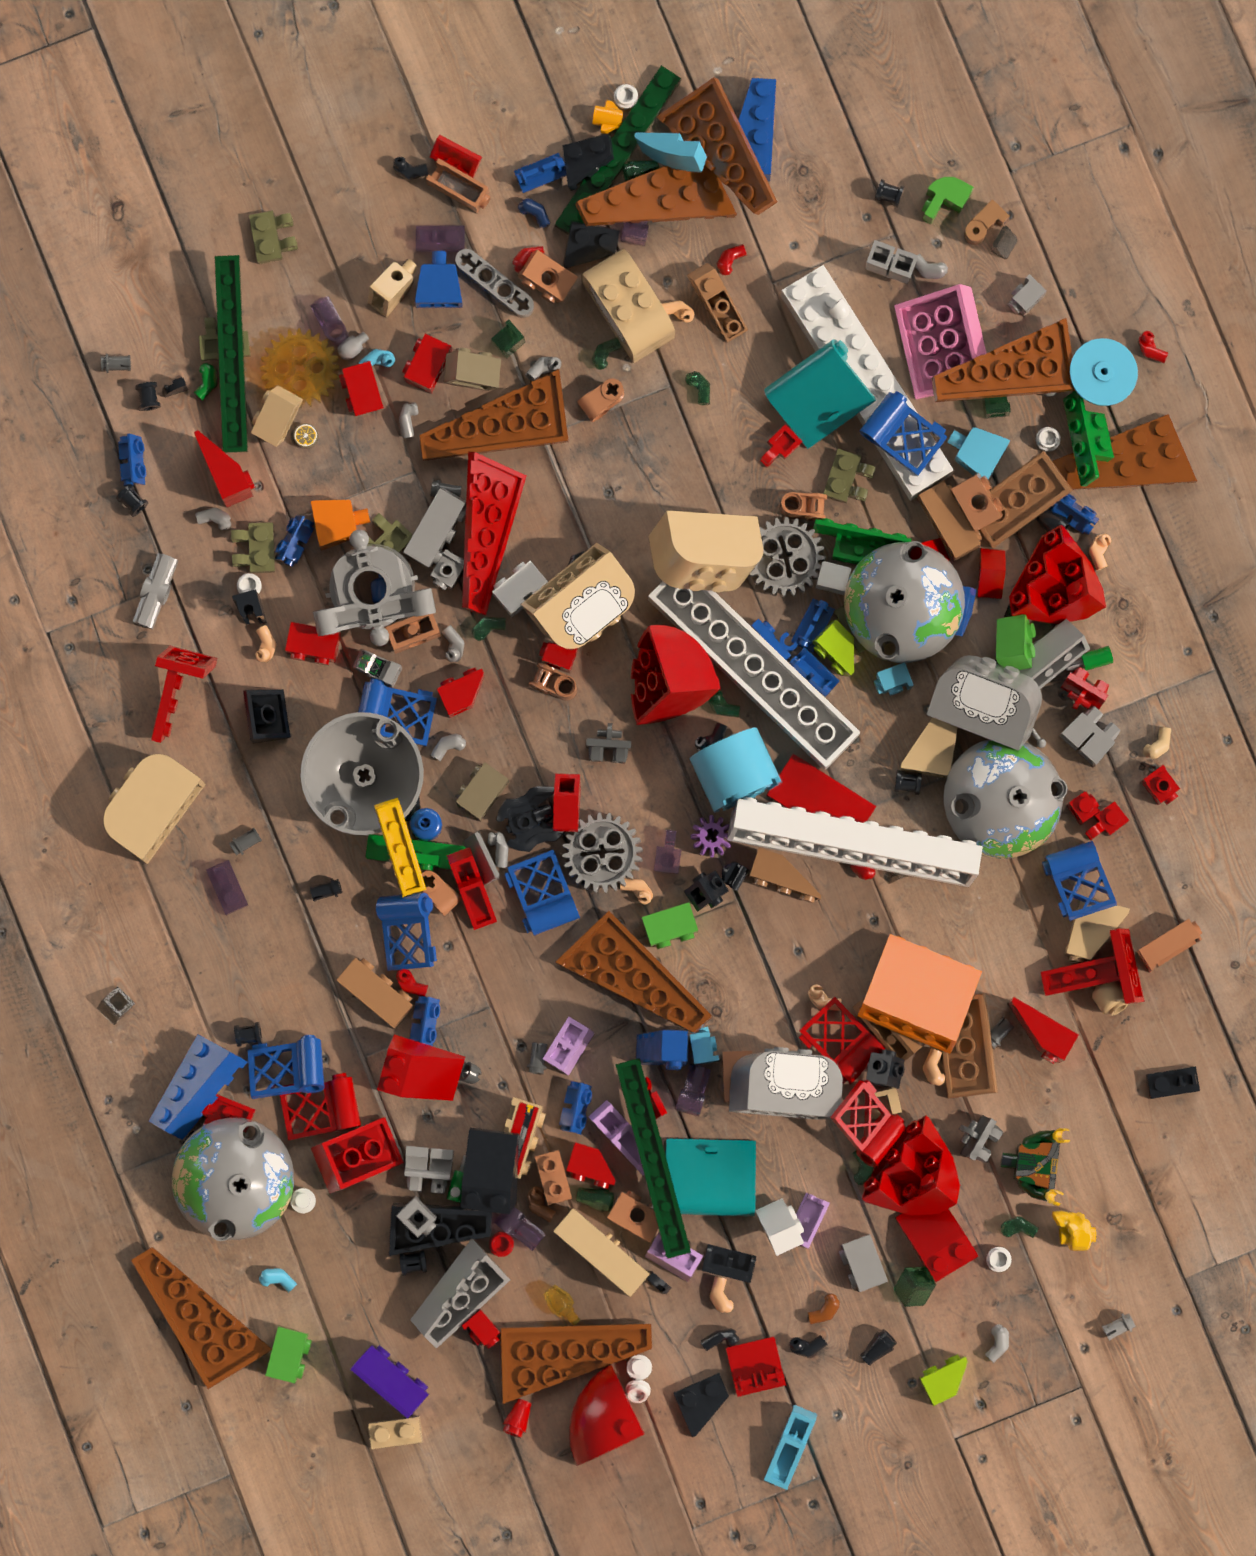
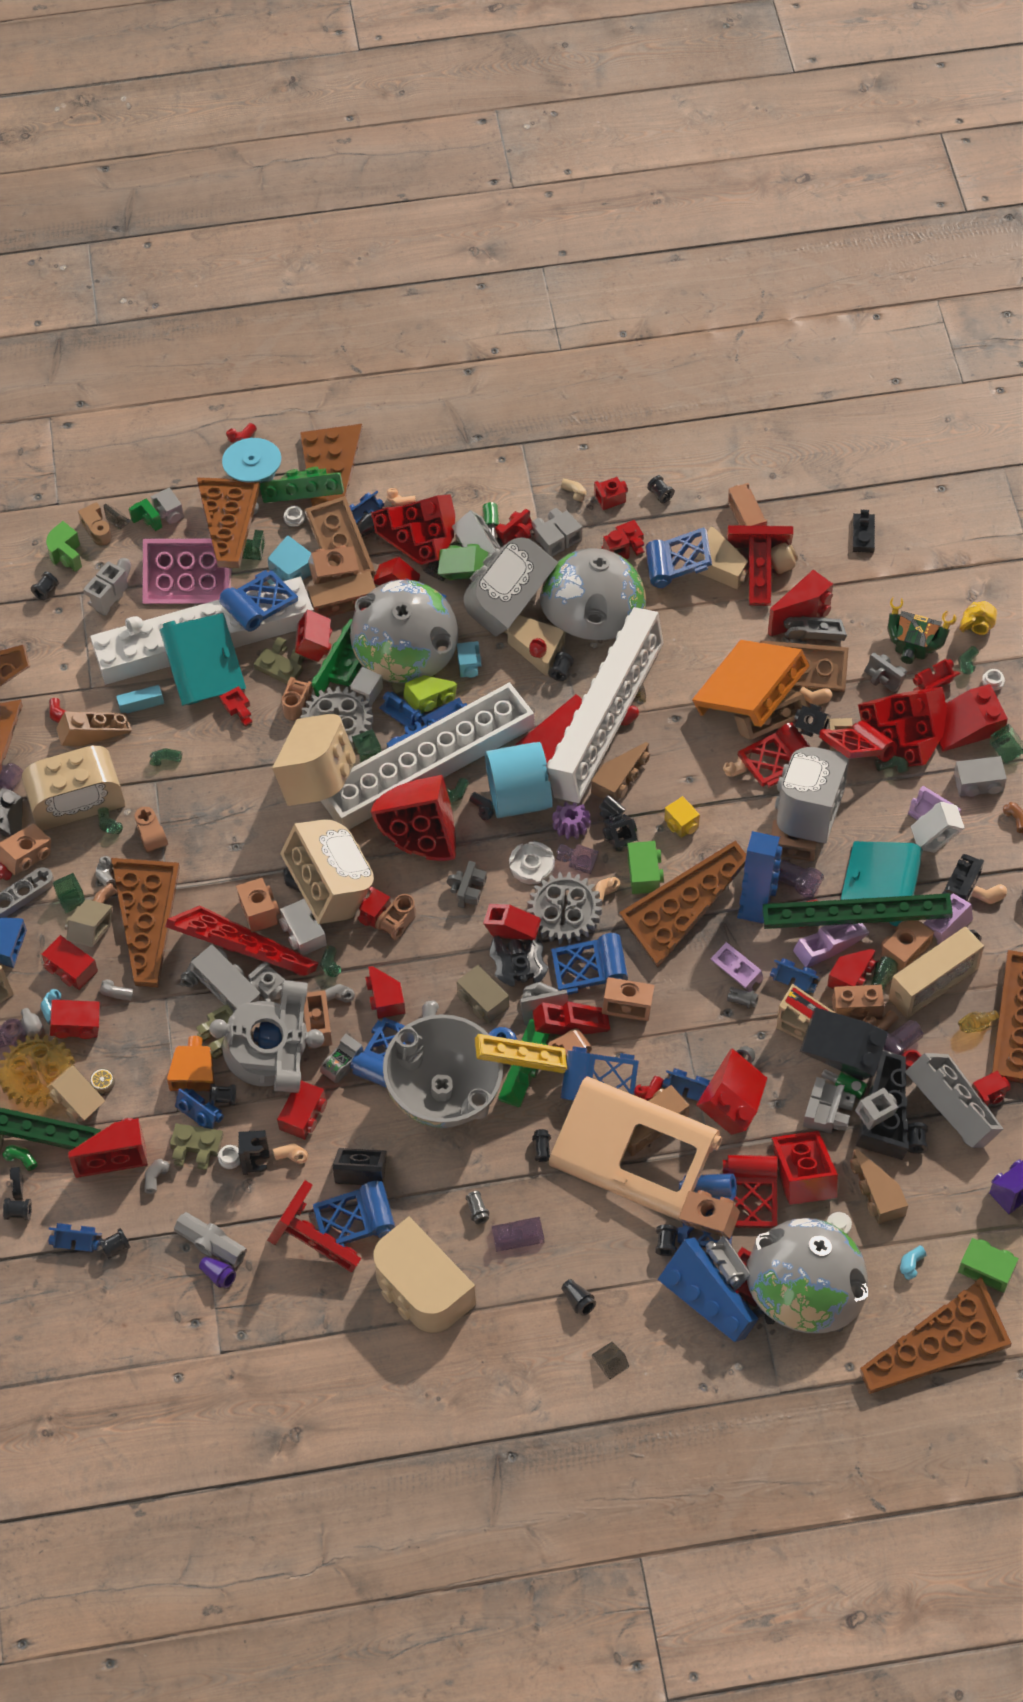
camera: 75 degrees left, 25 degrees down
(124, 607) = (218, 1272): none -> dark purple cone
(170, 961) = (579, 1298): none -> black cone
(217, 742) = (373, 1208): none -> blue piece
(236, 1092) = (728, 1262): none -> light grey hinge
(269, 1058) = (719, 1223): none -> nougat brick
(313, 551) = (222, 1094): none -> black bush
(342, 945) = (599, 1134): none -> light nougat piece
(343, 1239) = (882, 1191): none -> medium nougat slope
(500, 954) = (628, 999): none -> nougat brick
(514, 372) = (105, 893): none -> nougat arm
(542, 524) = (257, 904): none -> nougat brick
(654, 806) = (532, 862): none -> white tile
(739, 952) = (681, 817): none -> yellow brick
(752, 599) = (366, 745): none -> clear green panel
(767, 339) = (140, 699): none -> medium azure slope
(881, 504) = (313, 636): none -> red brick
(910, 751) = (538, 648): none -> red hinge
(976, 1188) = (943, 675): none -> red hinge
(1010, 279) = (145, 511): none -> green bracket
(1019, 1053) = (815, 628): none -> dark grey hinge
(1179, 841) = (660, 489): none -> black bush

